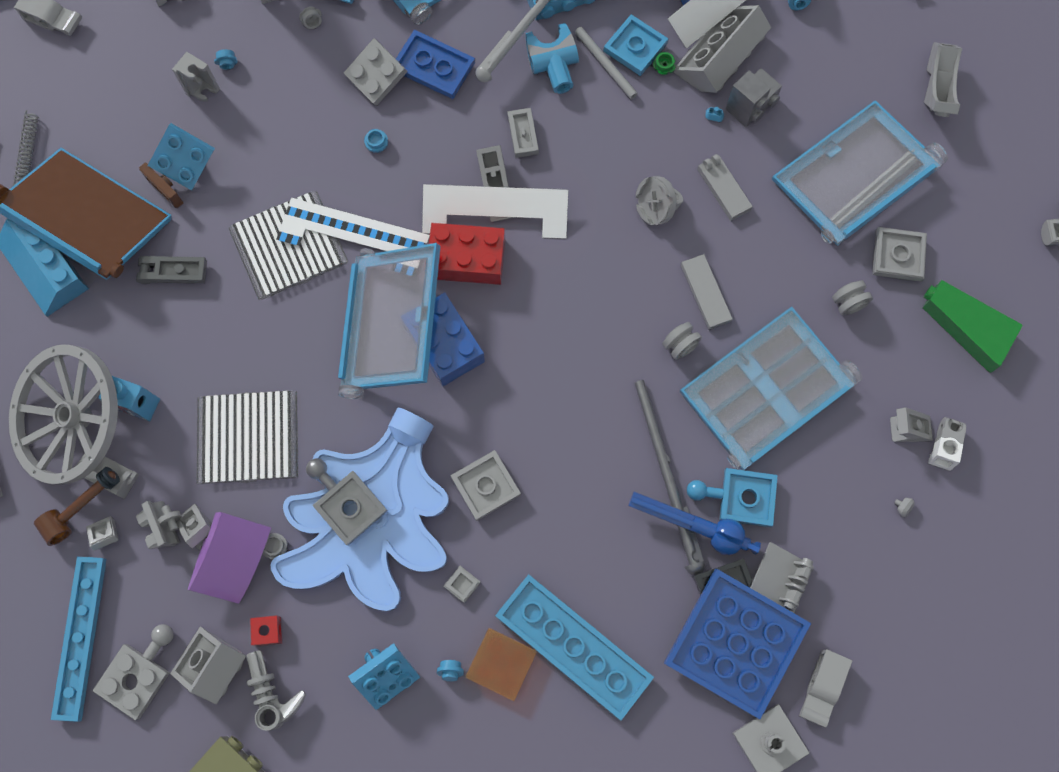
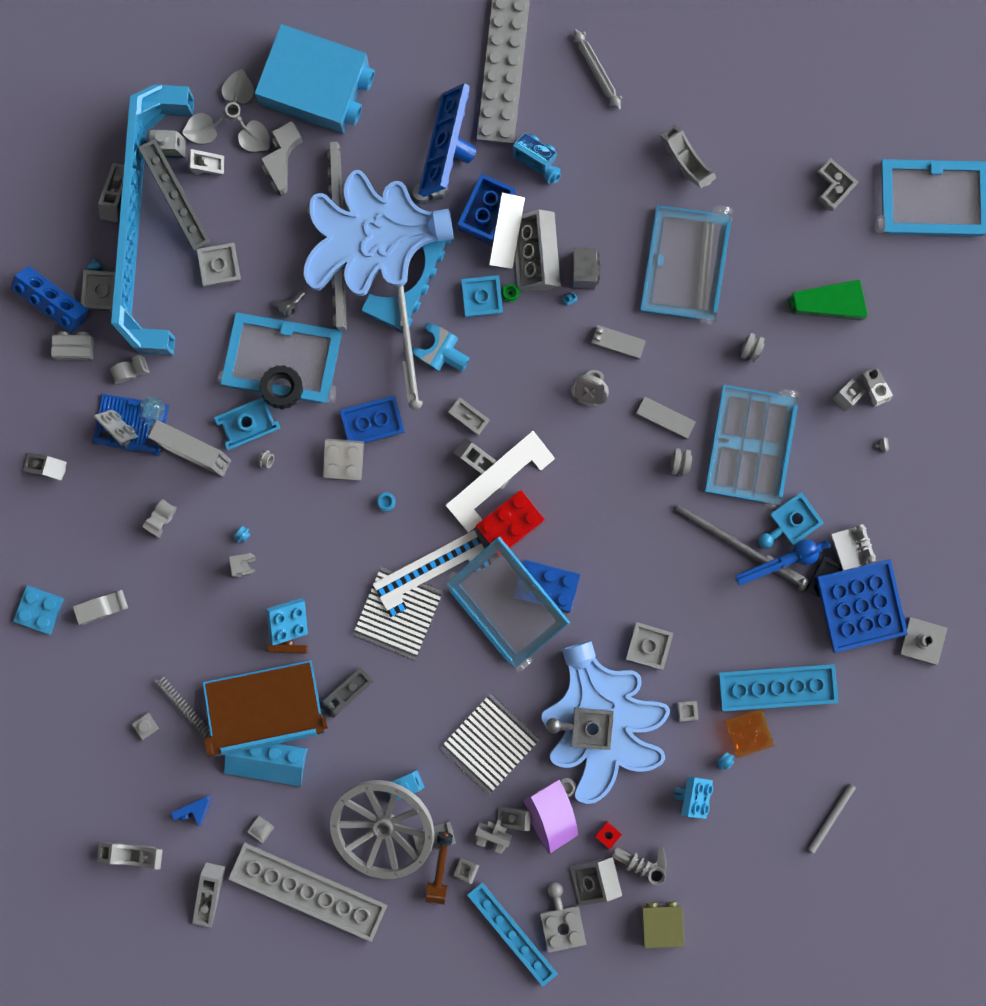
camera: 45 degrees left, 10 degrees up
(606, 63) = (474, 323): light grey piece -> none
(825, 687) = (926, 586): light grey piece -> none
(899, 254) = (754, 293): light grey plate -> none

